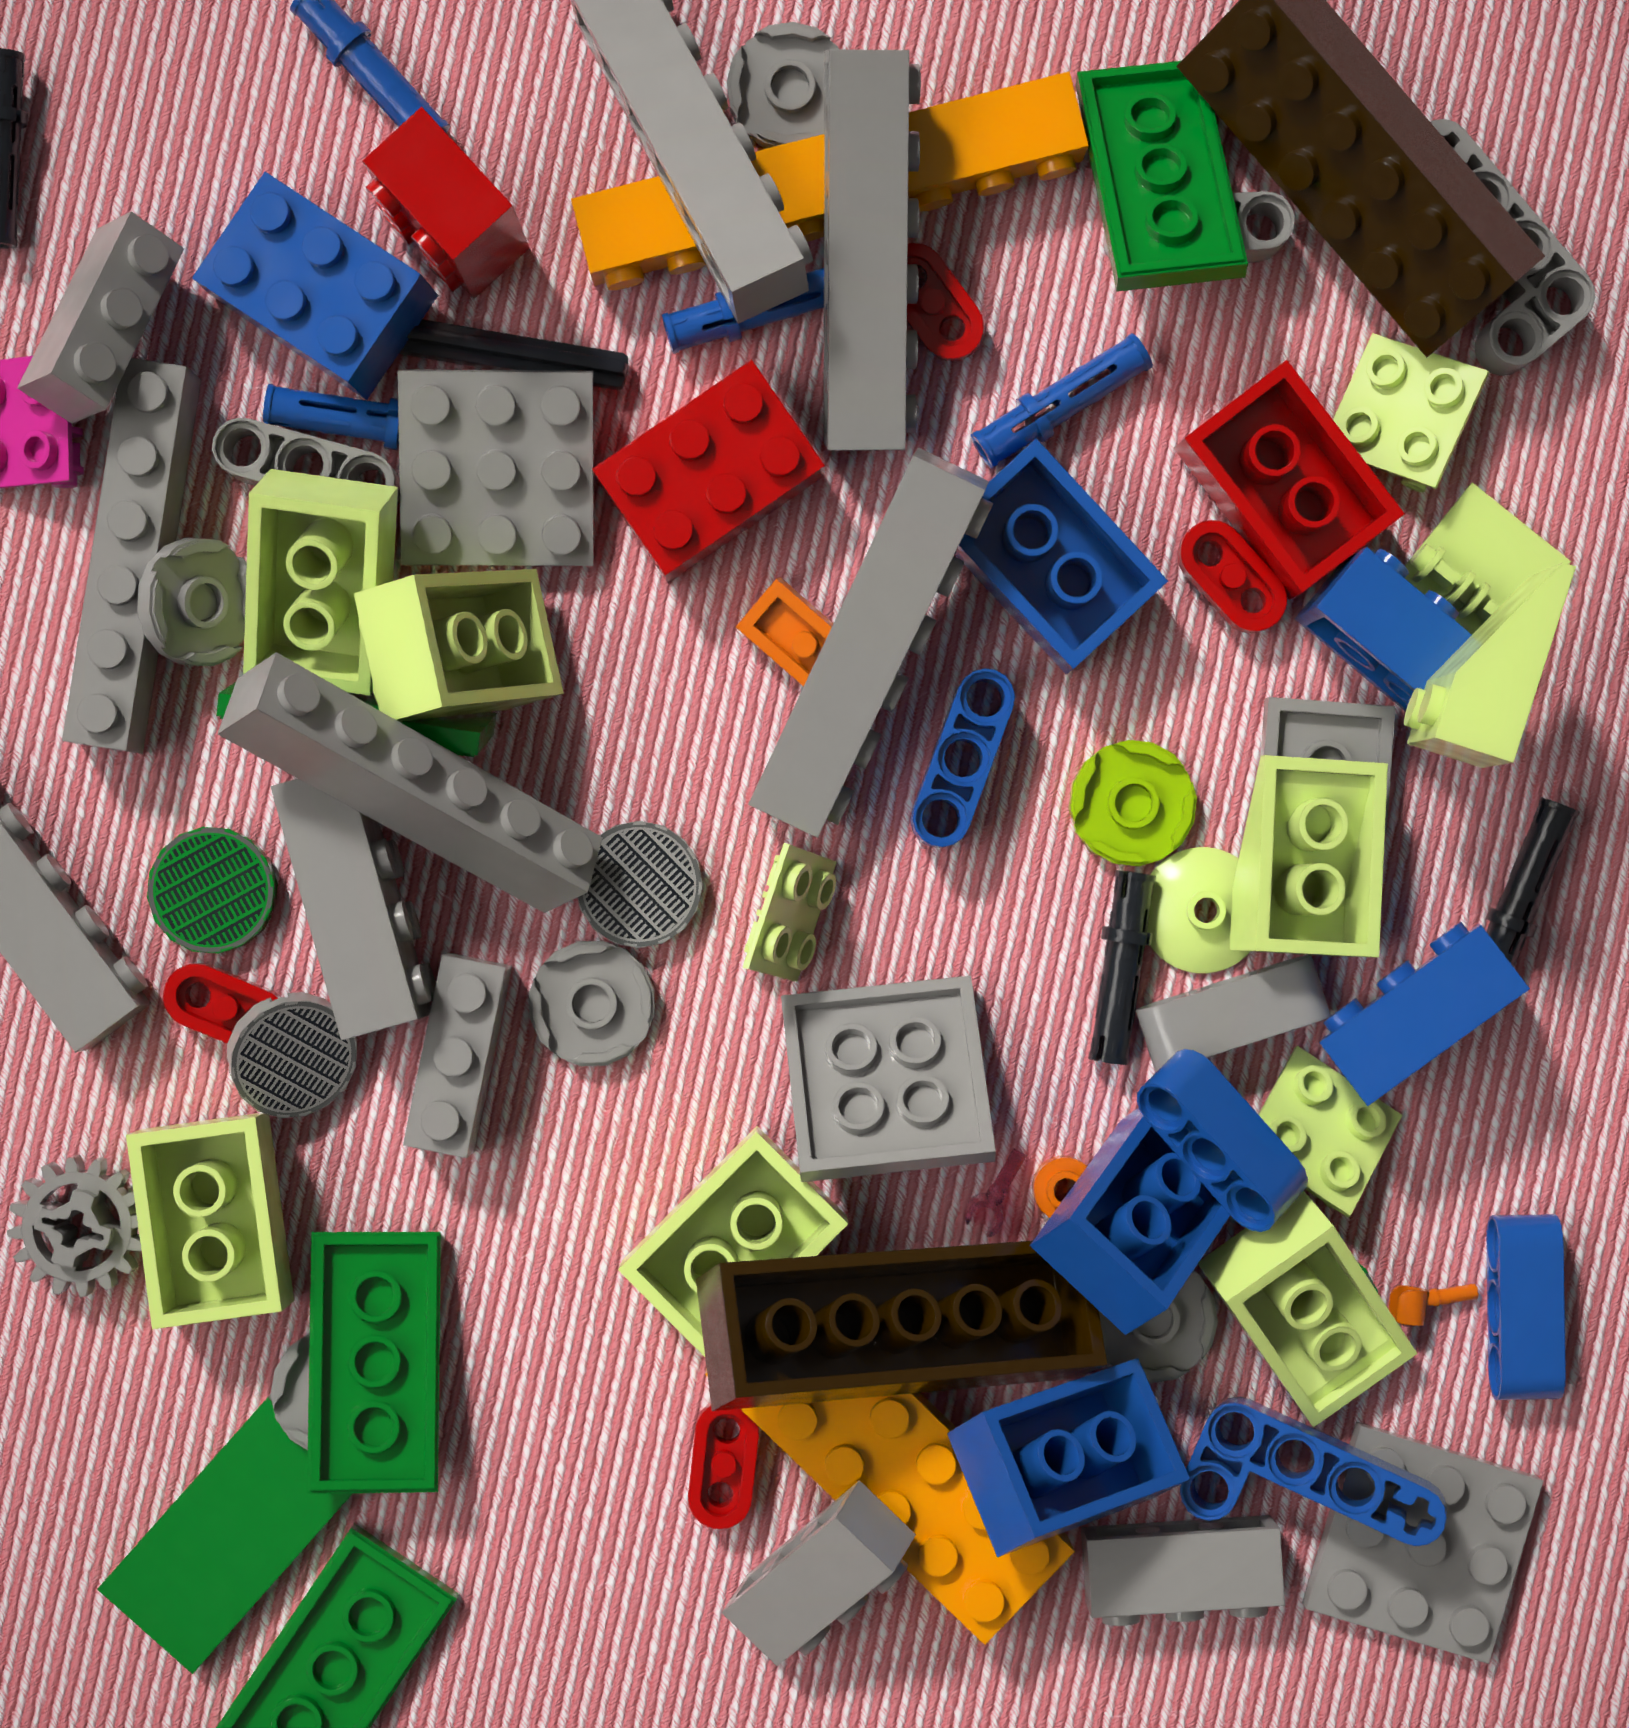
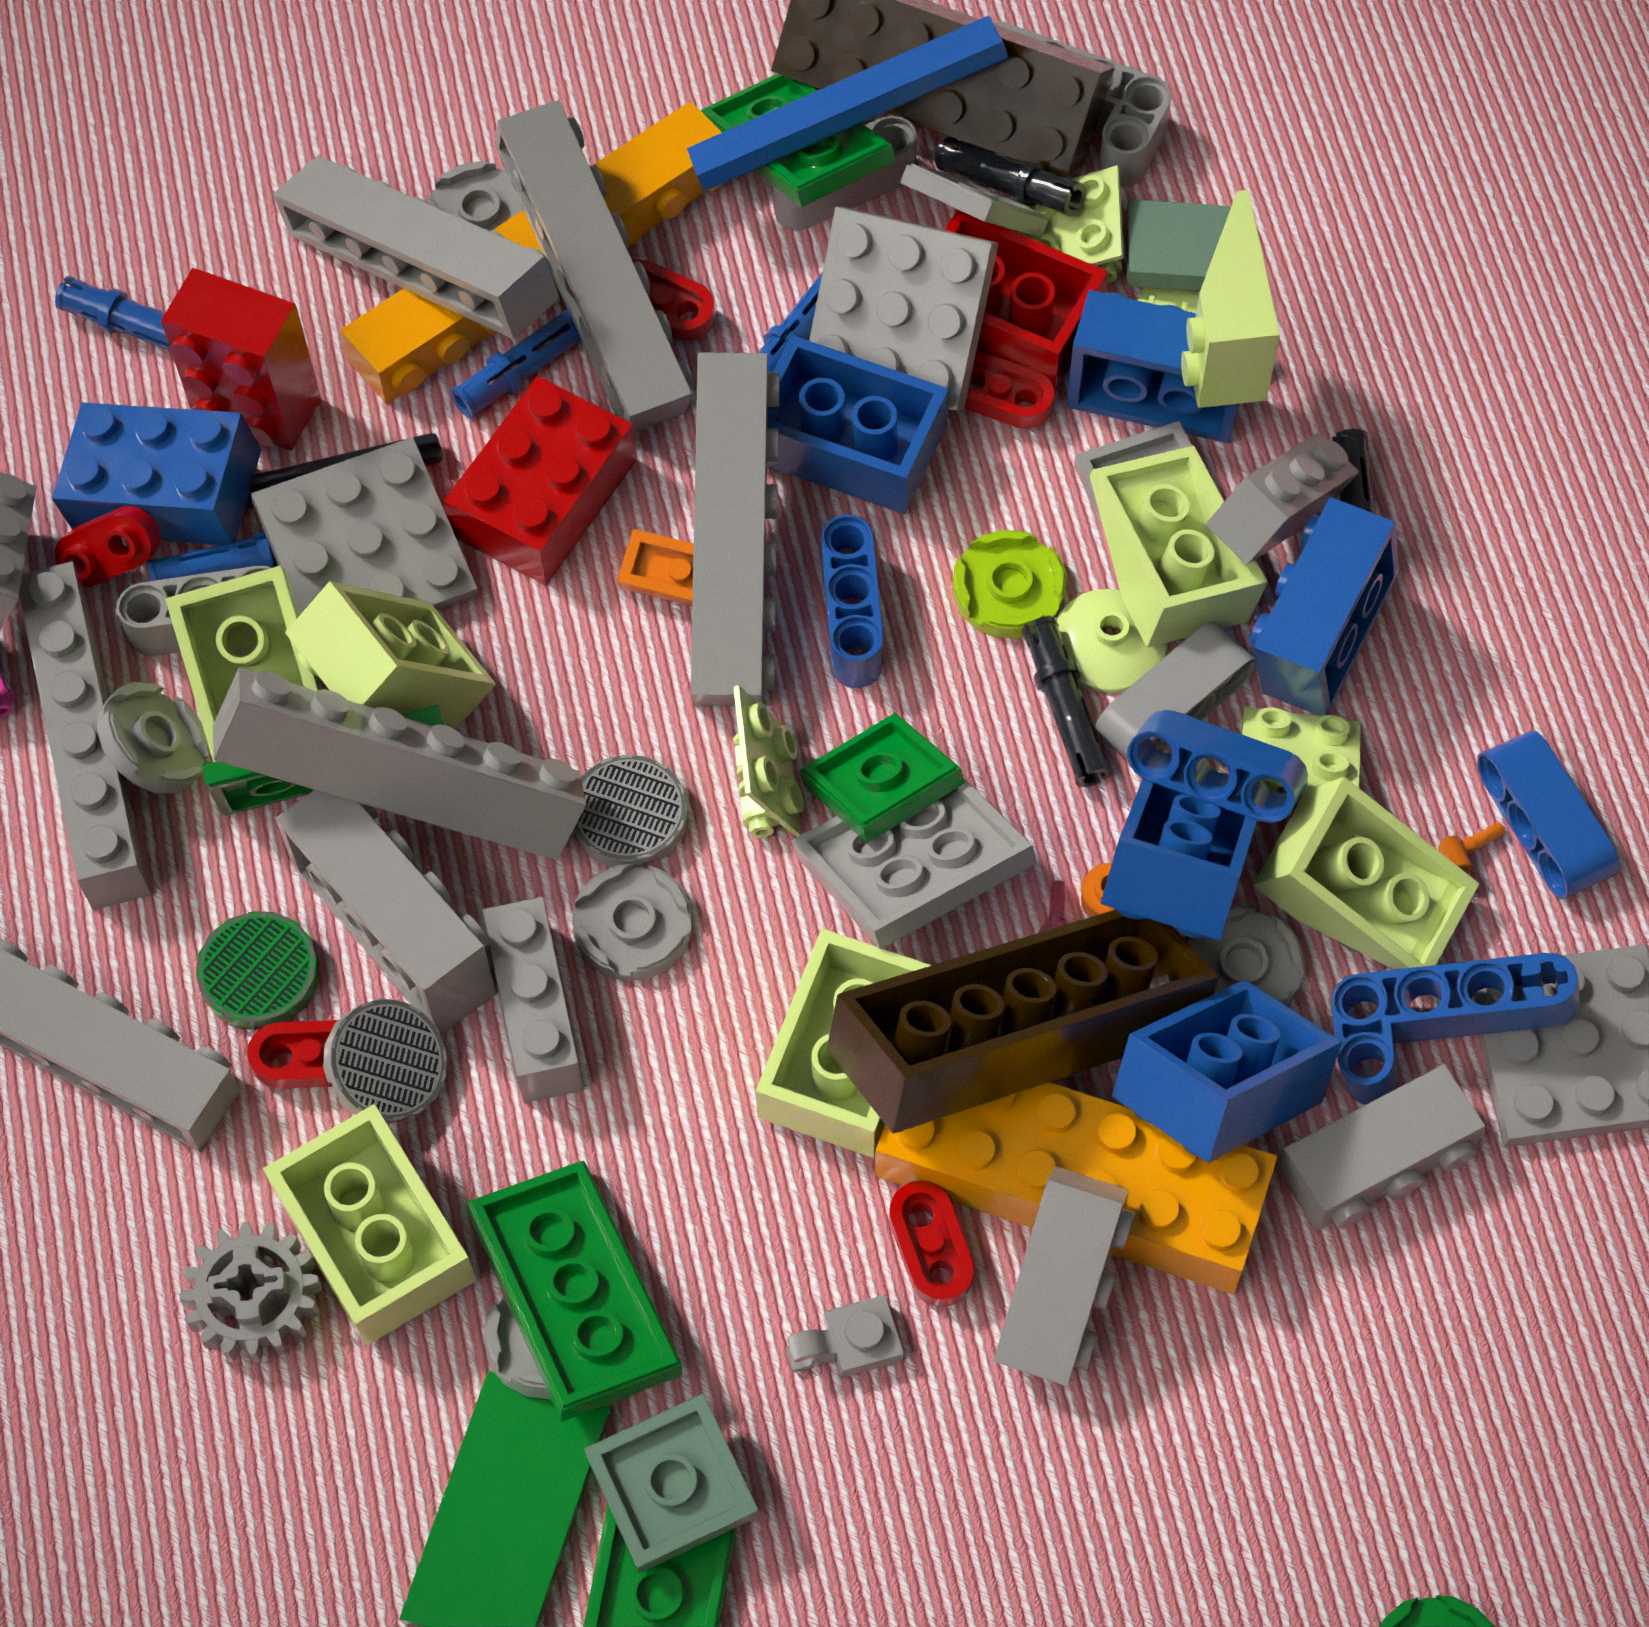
camera: 25 degrees left, 25 degrees down
(233, 352) = (102, 548): none -> red plate
(382, 1590) = (671, 1483): none -> sand green plate
(617, 1515) = (855, 1337): none -> light grey plate
(898, 973) = (881, 777): none -> green tile
(1169, 452) = (905, 297): none -> light grey plate
(1227, 185) = (847, 103): none -> blue tile
(1311, 350) = (974, 200): none -> light grey tile
(1382, 344) = (1022, 180): none -> black pin
(1444, 871) = (1281, 497): none -> light grey brick
(1509, 491) = (1171, 242): none -> sand green tile

